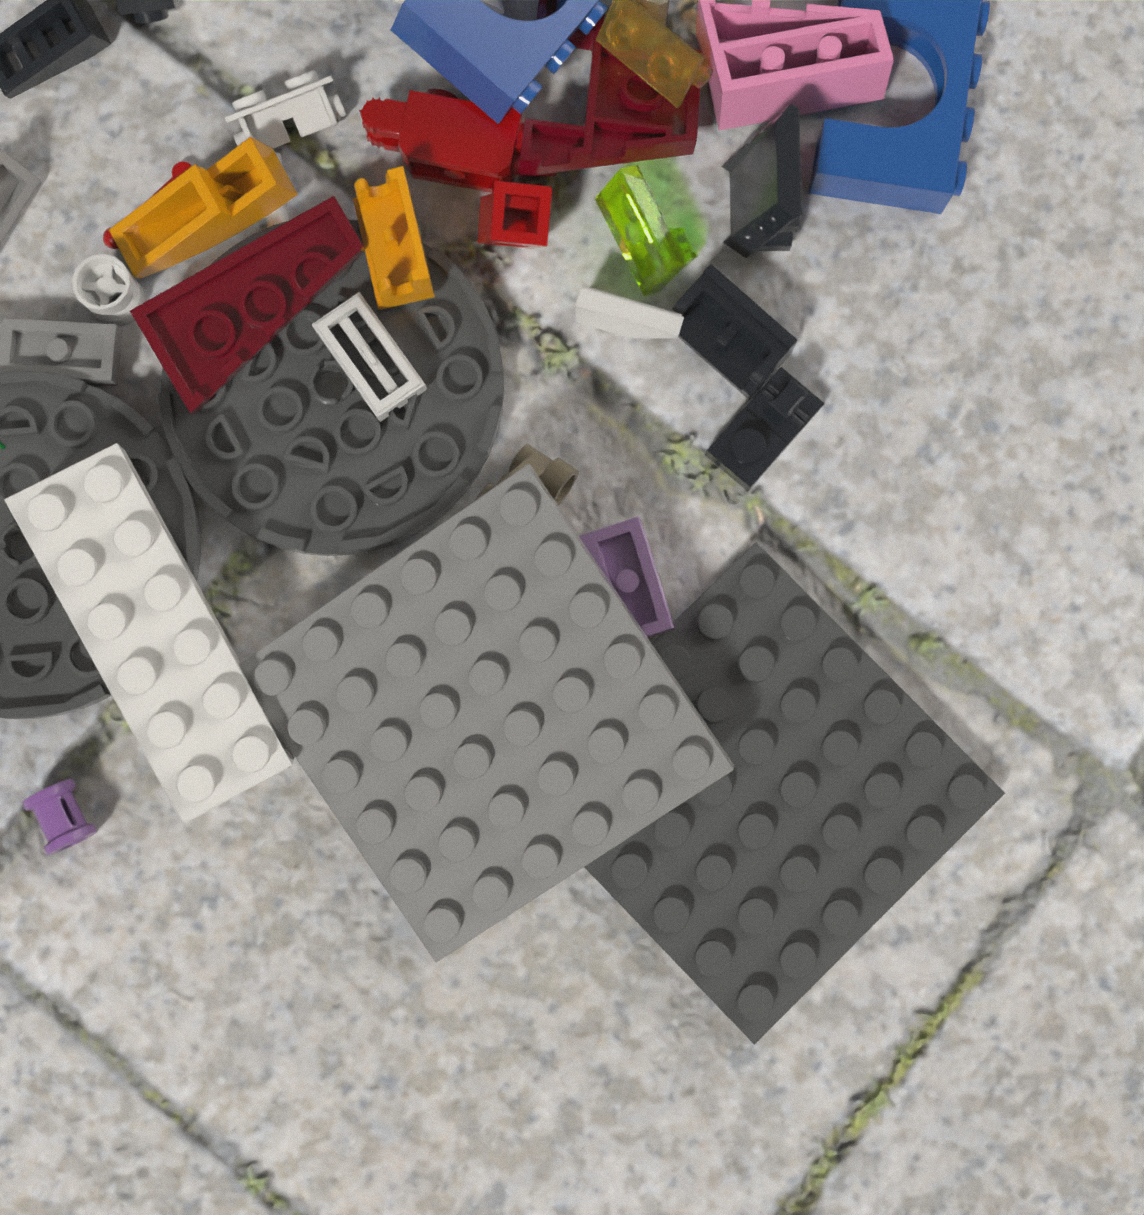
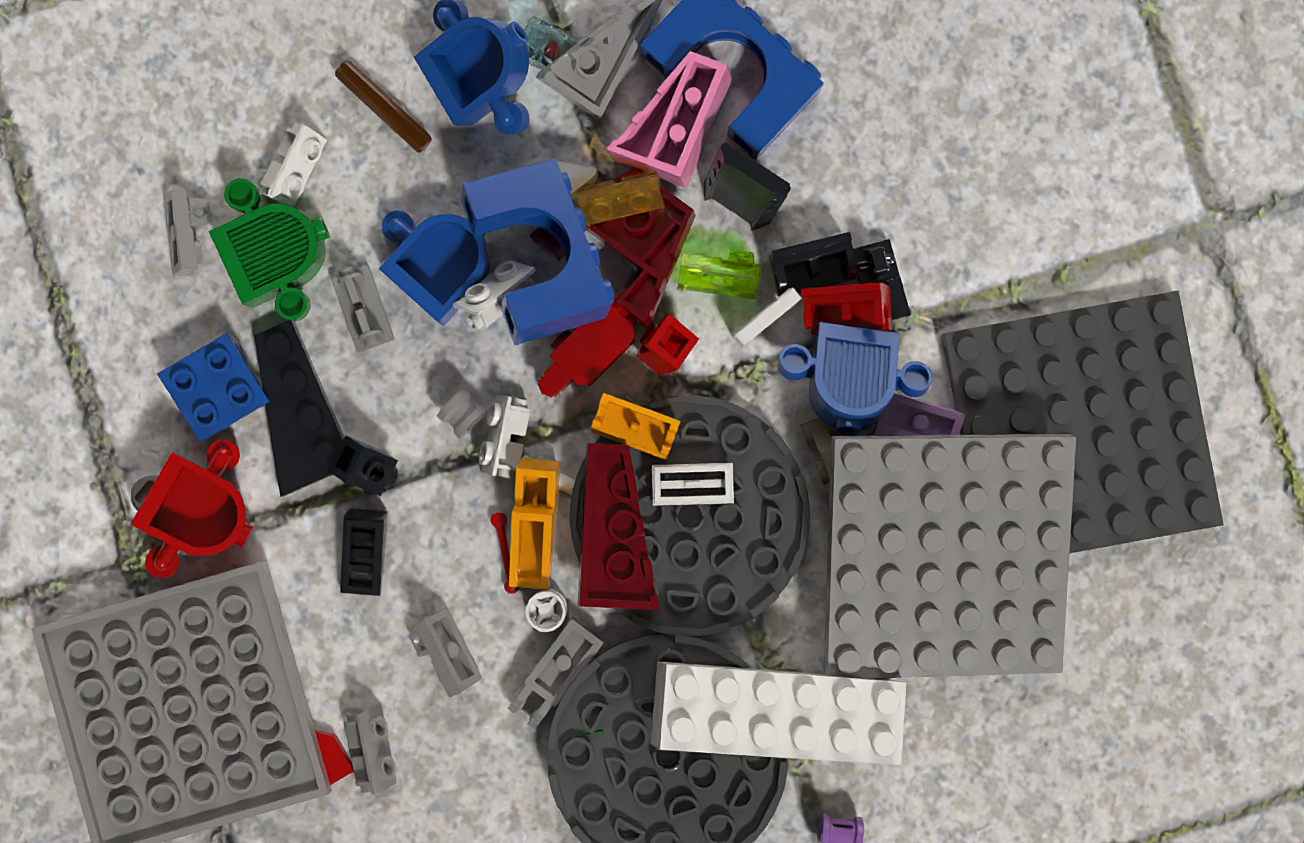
camera: 60 degrees left, 5 degrees up
(278, 45) = (462, 413): none -> light grey wheel
(628, 458) = (853, 375): none -> blue piece
(705, 401) = (848, 305): none -> red hinge

